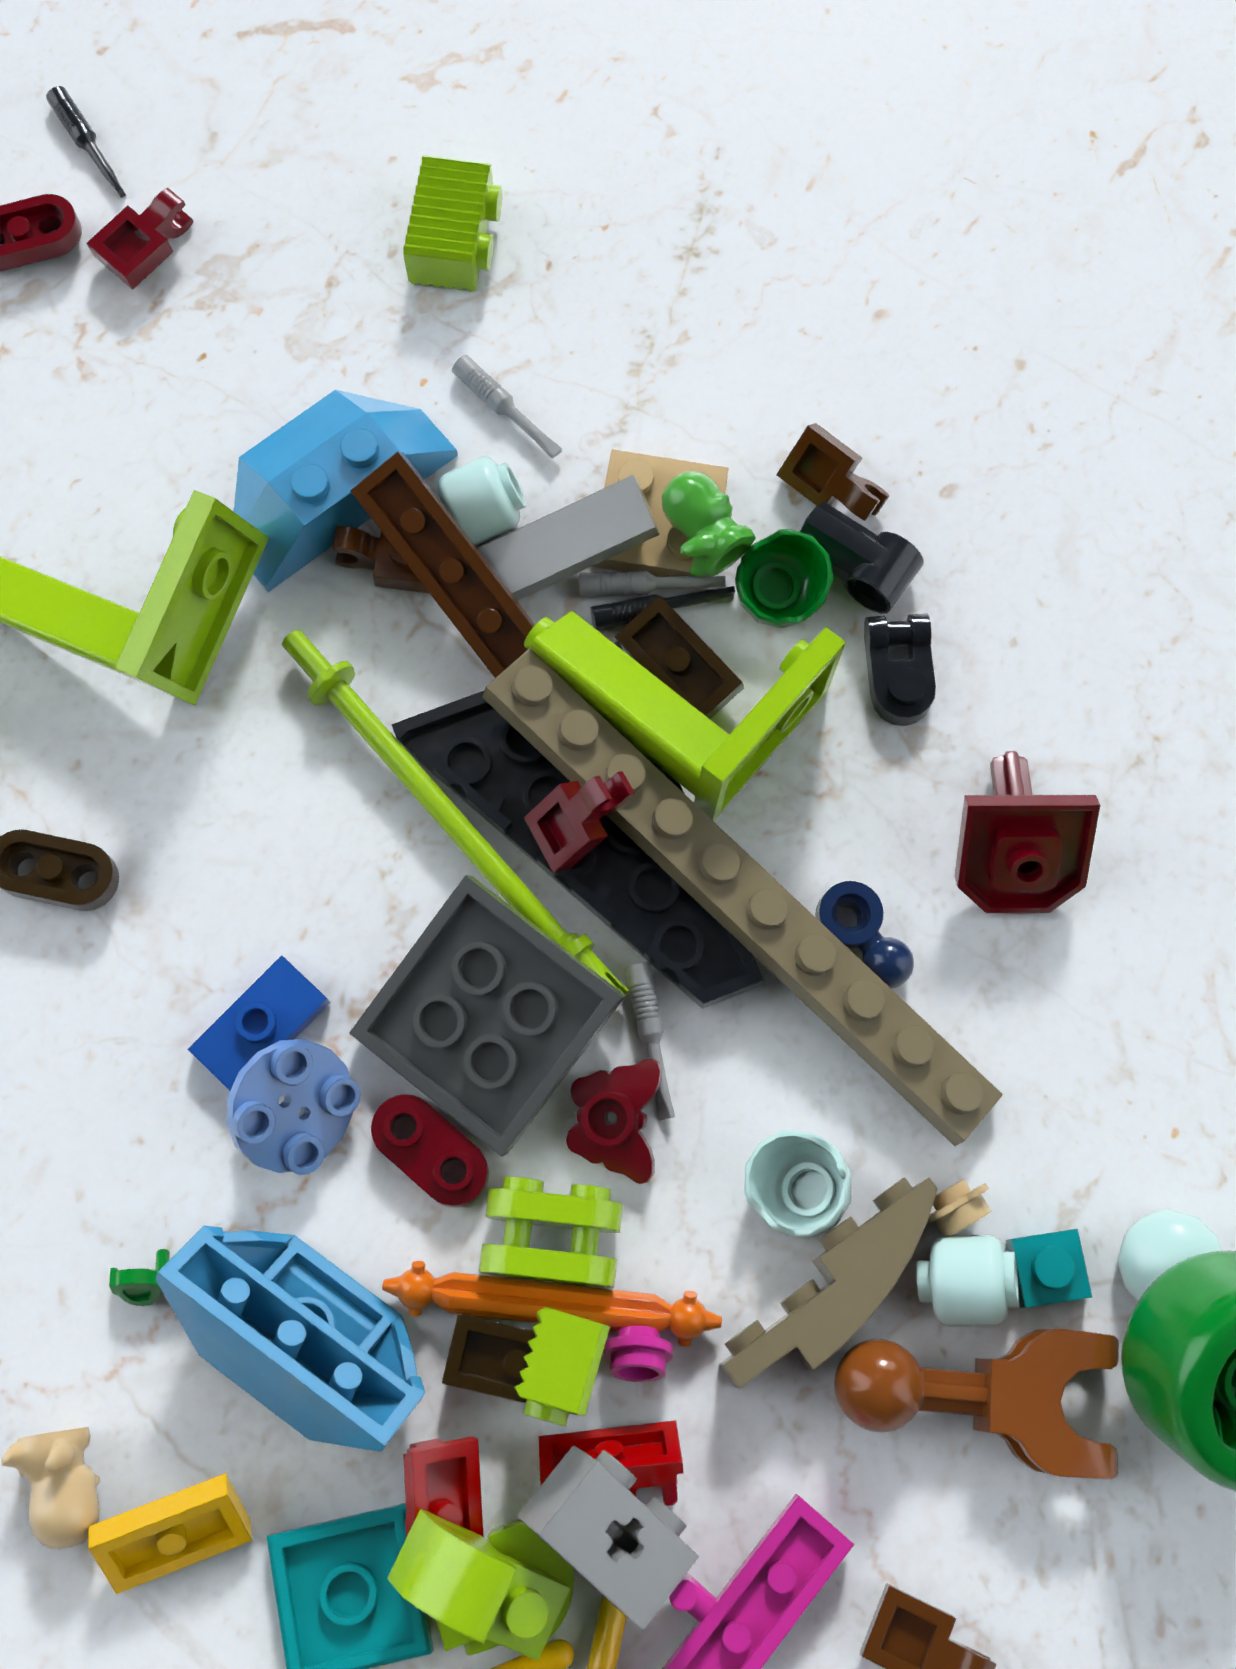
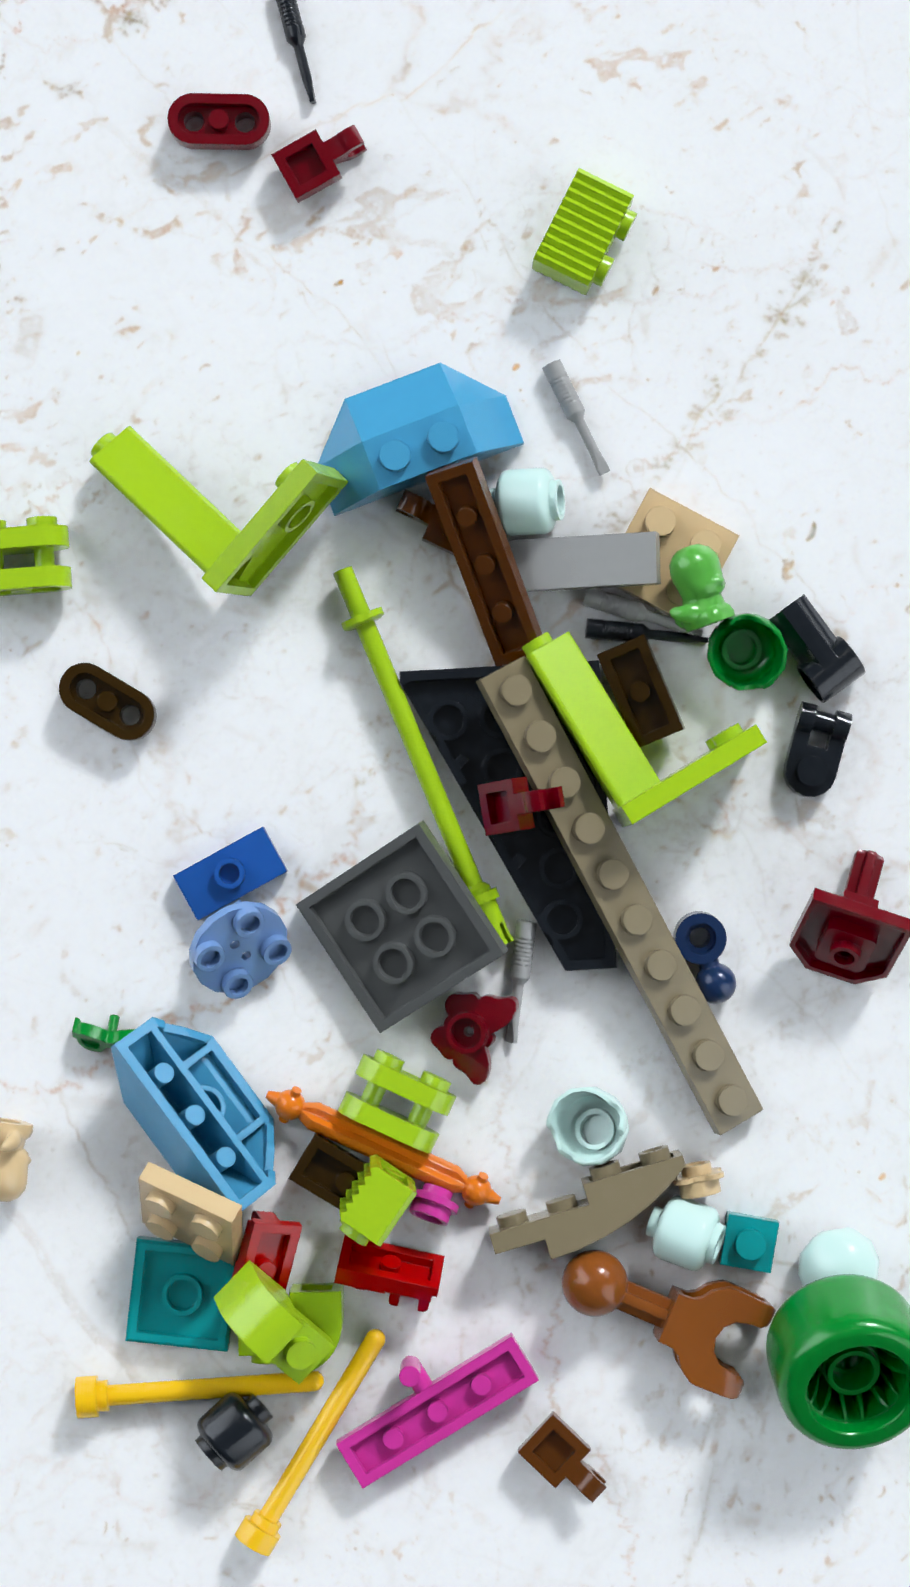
camera: 20 degrees right, 15 degrees up
(170, 1533) = (72, 1215): yellow plate -> none
(323, 1471) = (190, 1214): none -> tan plate
(429, 1150) = (328, 1009): dark red plate -> none
(639, 1562) = (381, 1346): light grey brick -> none
(823, 471) = (816, 566): reddish brown plate -> none

